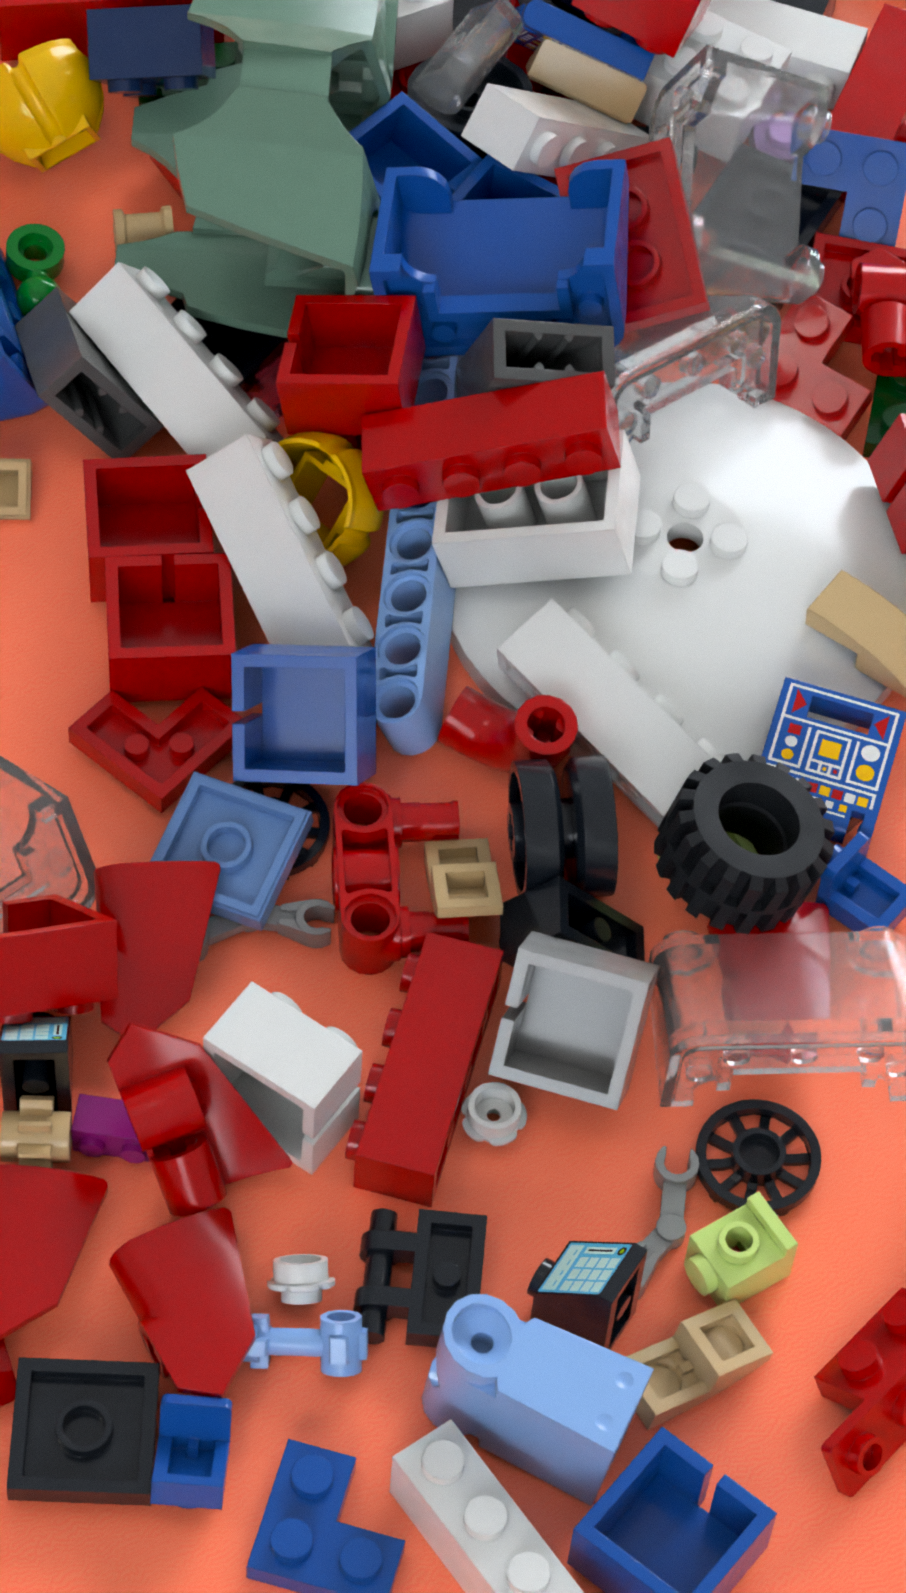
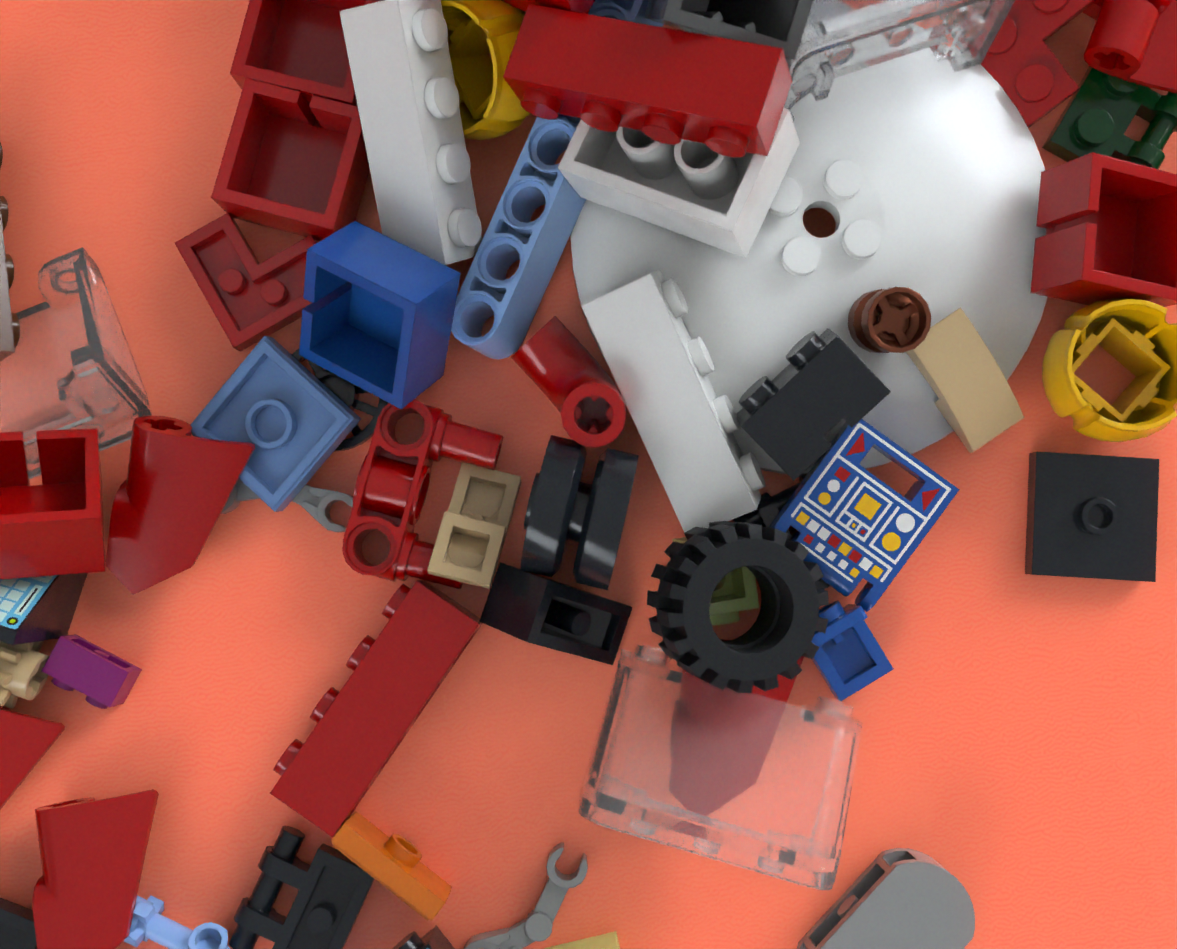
camera: 25 degrees right, 30 degrees up
(189, 1119) = (124, 712): red panel -> none
(289, 1072) = (229, 692): white piece -> none
(300, 1278) = (196, 862): white plate -> none
(497, 1099) = (420, 779): white plate -> none
(509, 1205) = (393, 864): none -> orange plate
(578, 1022) = (514, 723): light grey piece -> none
(740, 677) = (808, 400): none -> black brick
(758, 1155) = (643, 882): black wheel -> none
(781, 590) = (902, 317): none -> copper wheel

